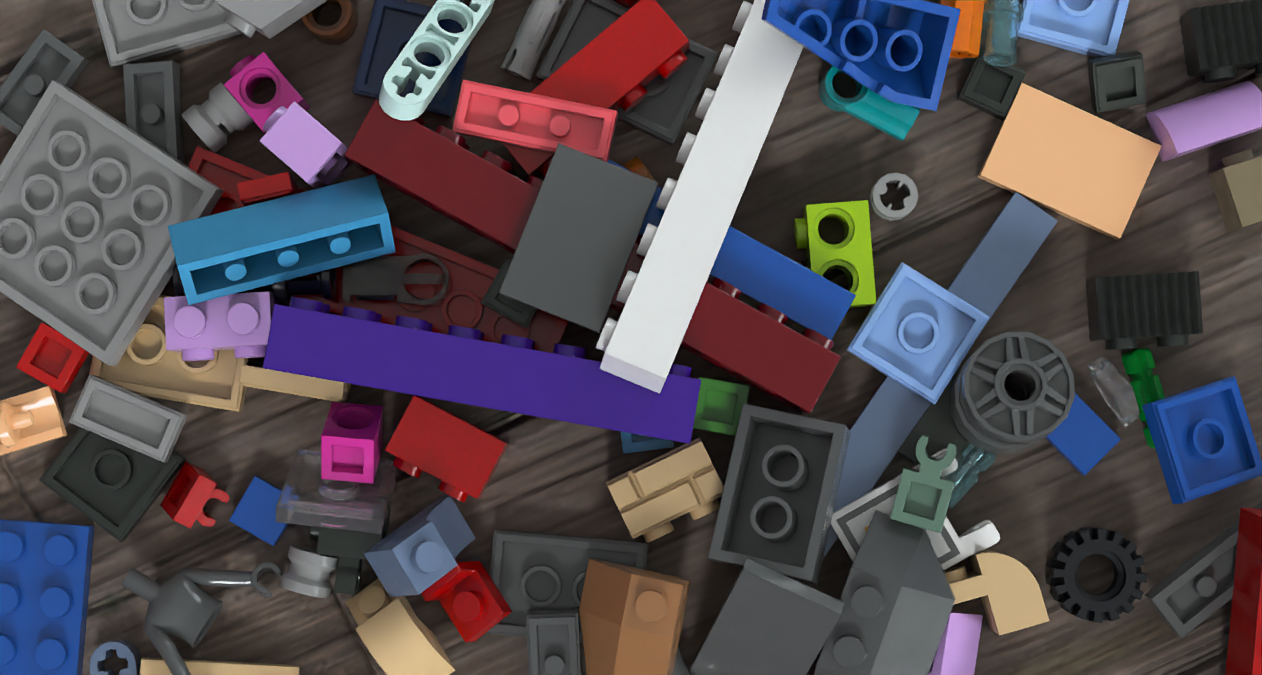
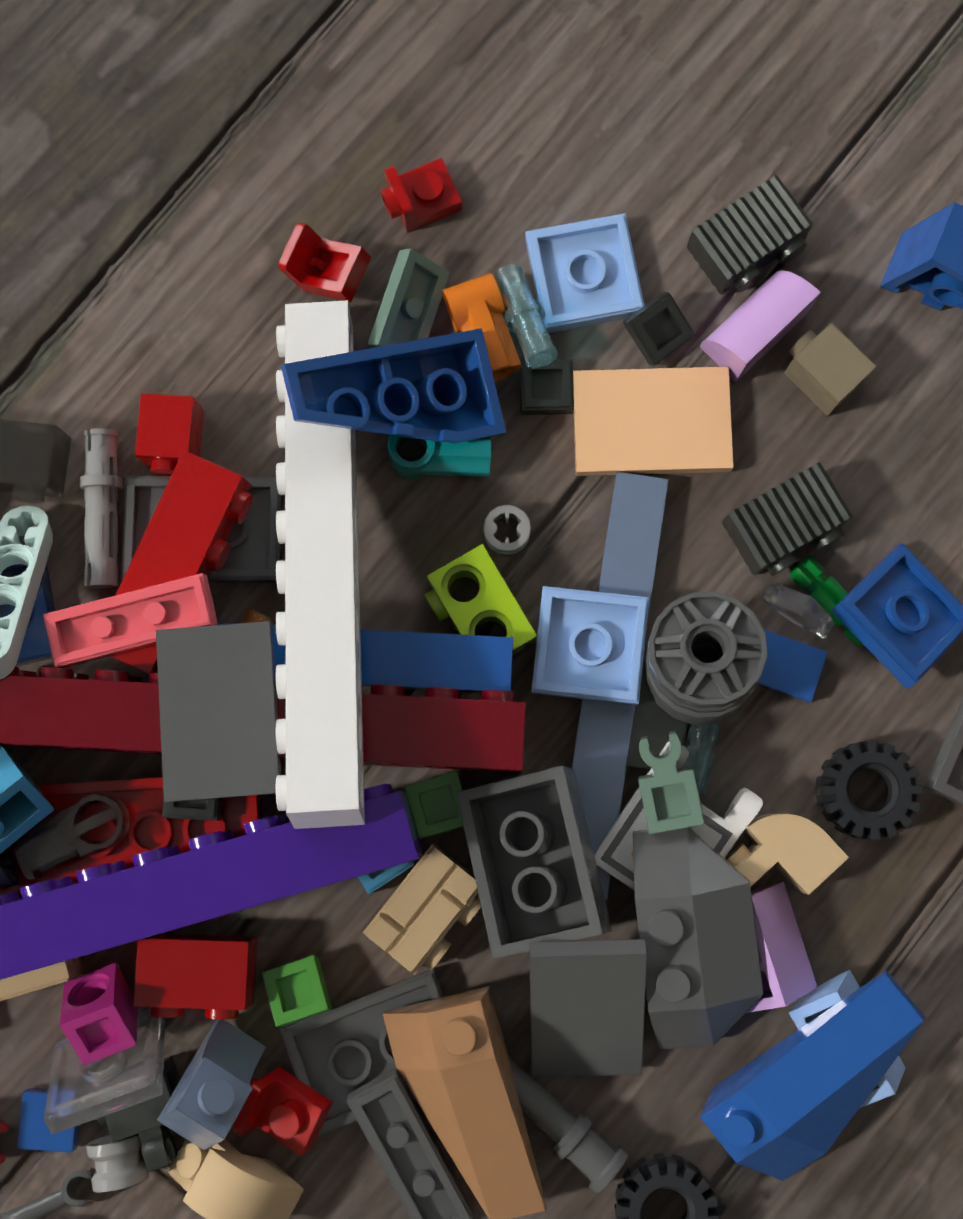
camera: 20 degrees left, 5 degrees down
(524, 505) = (297, 991): none -> bright green plate

